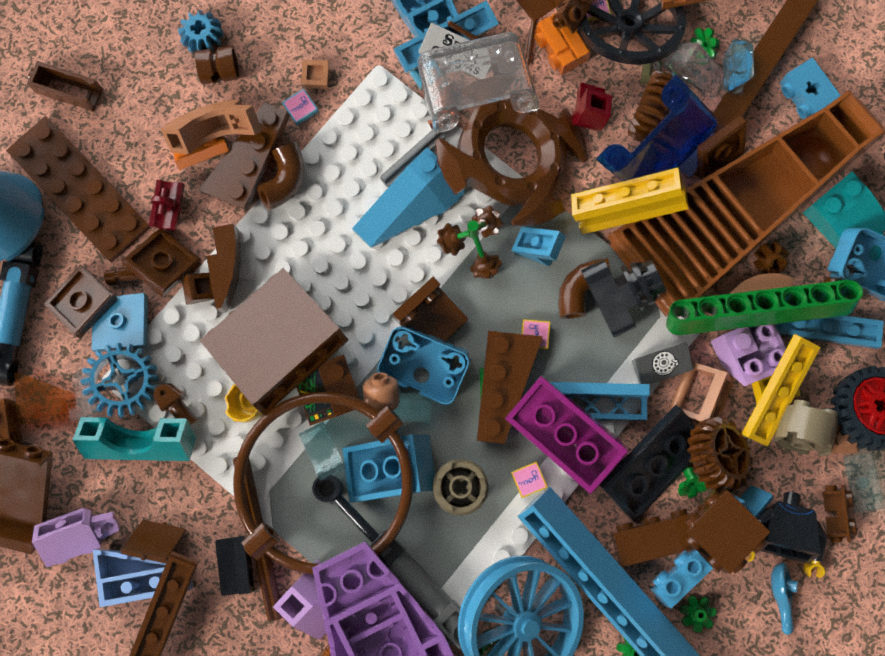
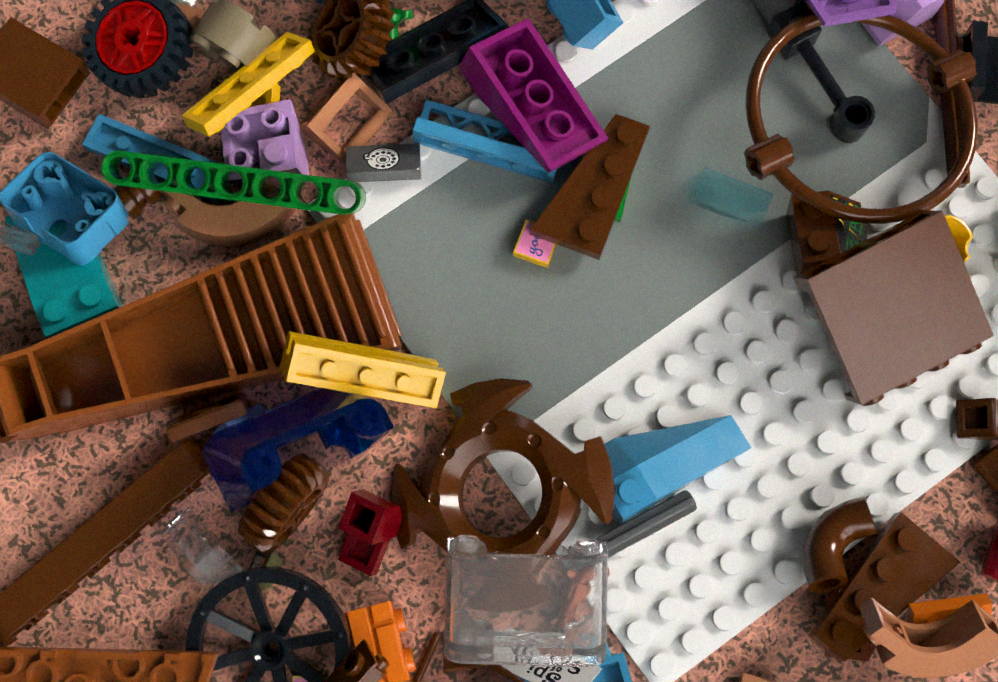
camera: 170 degrees left, 5 degrees down
(225, 265) = (940, 436): reddish brown slope -> none
(300, 107) = (788, 654): bright pink tile -> none
(321, 450) = (852, 161): clear light blue tile -> none
(375, 469) = (783, 111): dark azure slope -> none
(381, 391) = (762, 206): nougat head -> none
(430, 354) = (665, 233): dark azure axle -> none
(431, 312) = (672, 299): reddish brown bracket -> none
(460, 487) = (686, 71): dark tan cone -> none
(488, 224) = (617, 390): reddish brown plant -> none
(529, 479) = (594, 70): bright pink tile -> none
(539, 244) = (498, 352): dark azure slope -> none
(574, 291) = (461, 290): reddish brown cylinder -> none
(618, 294) = (415, 251): black beam -> none
(706, 40) = (172, 587): green plant -> none
(737, 64) = (140, 534): clear light blue slope -> none
(771, 258) = (194, 257): reddish brown gear -> none
(804, 79) = (36, 462): dark azure brick -> none

